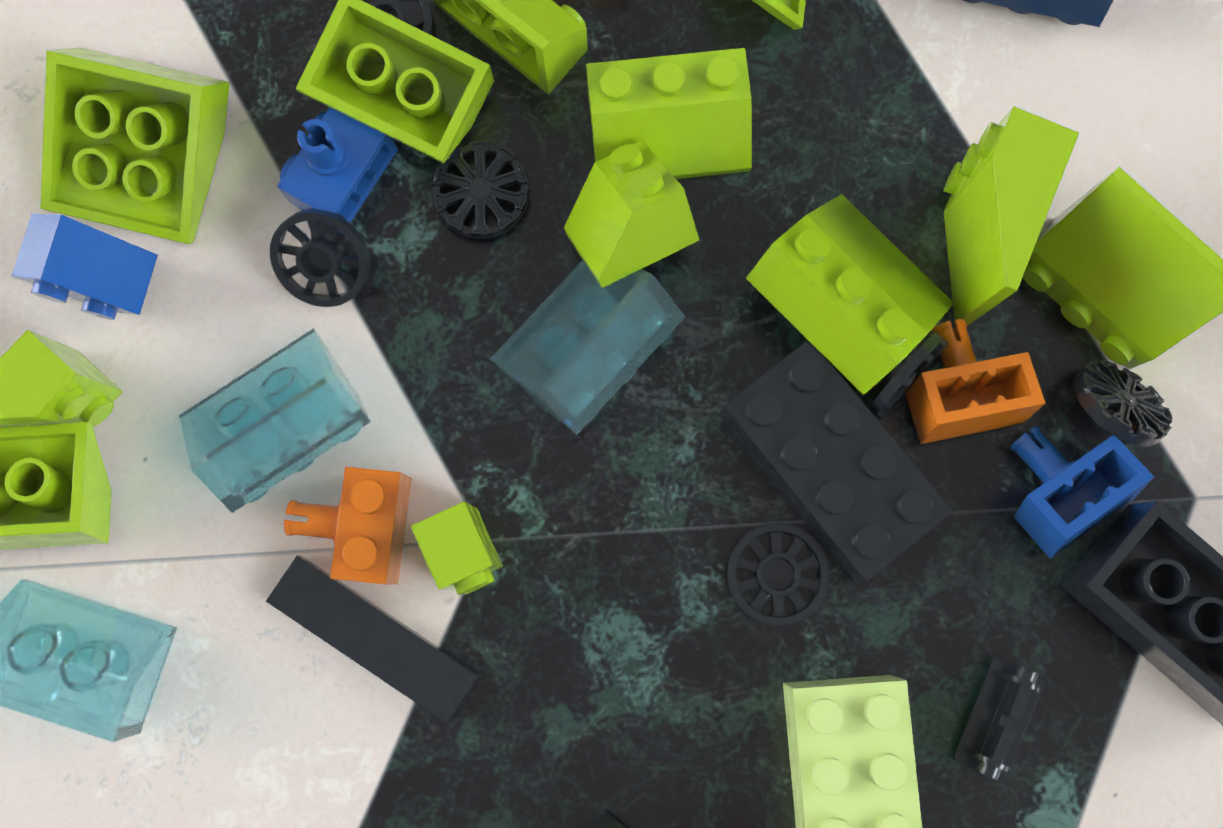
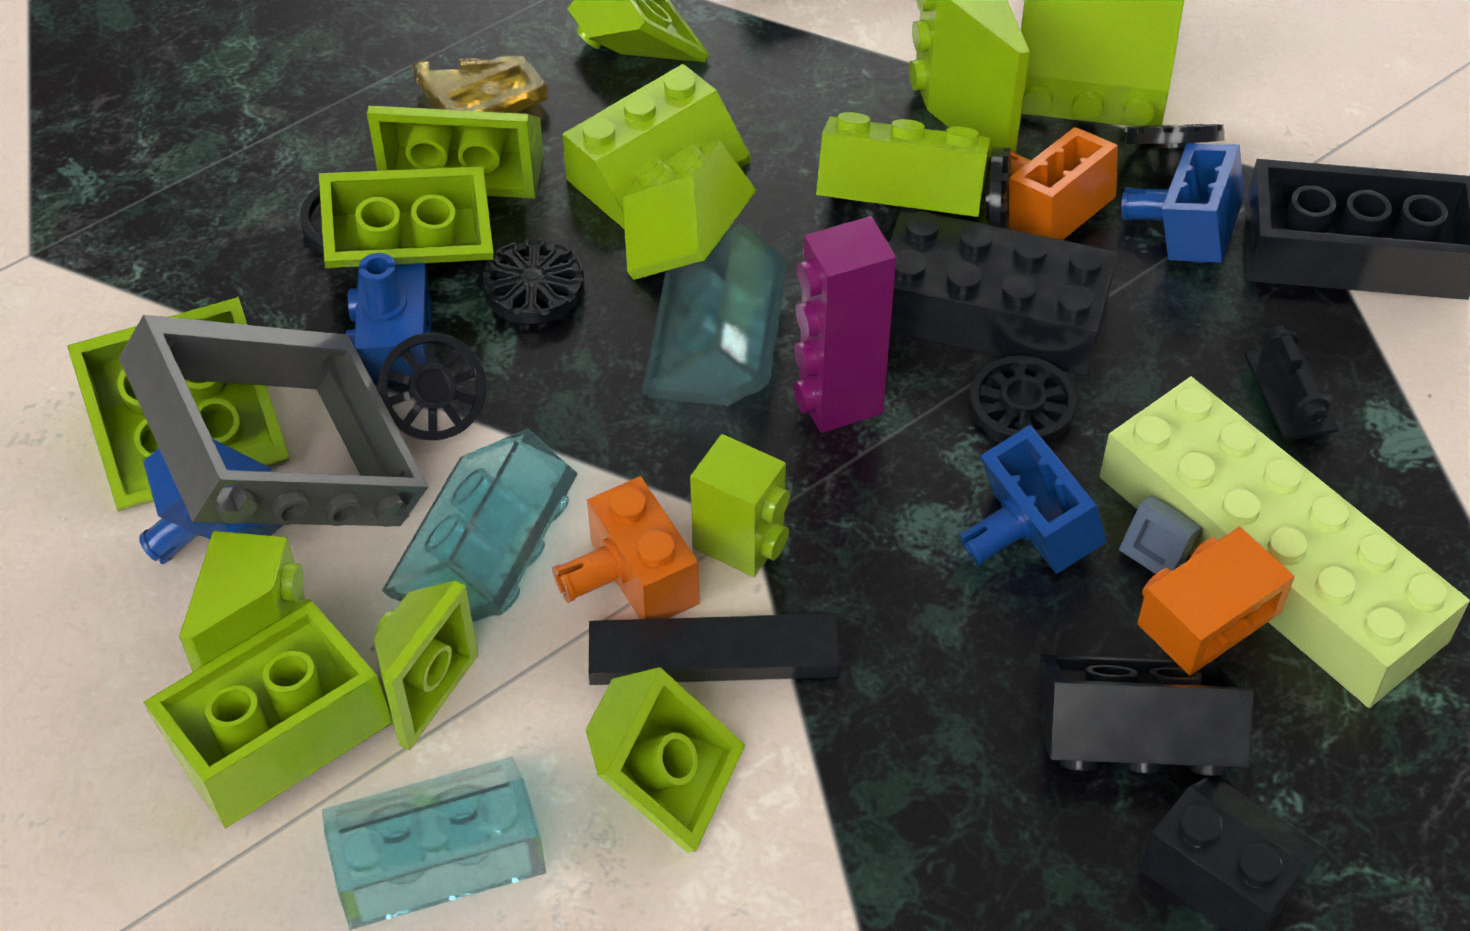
camera: 35 degrees left, 30 degrees down
(135, 148) = (174, 350): none -> dark grey window
(140, 513) = (424, 654): none -> lime slope
(257, 713) = (663, 753): none -> lime slope
(638, 456) = (844, 323): none -> magenta brick
(694, 699) = (1037, 504): none -> blue brick
(770, 790) = (1159, 536): none -> sand blue plate

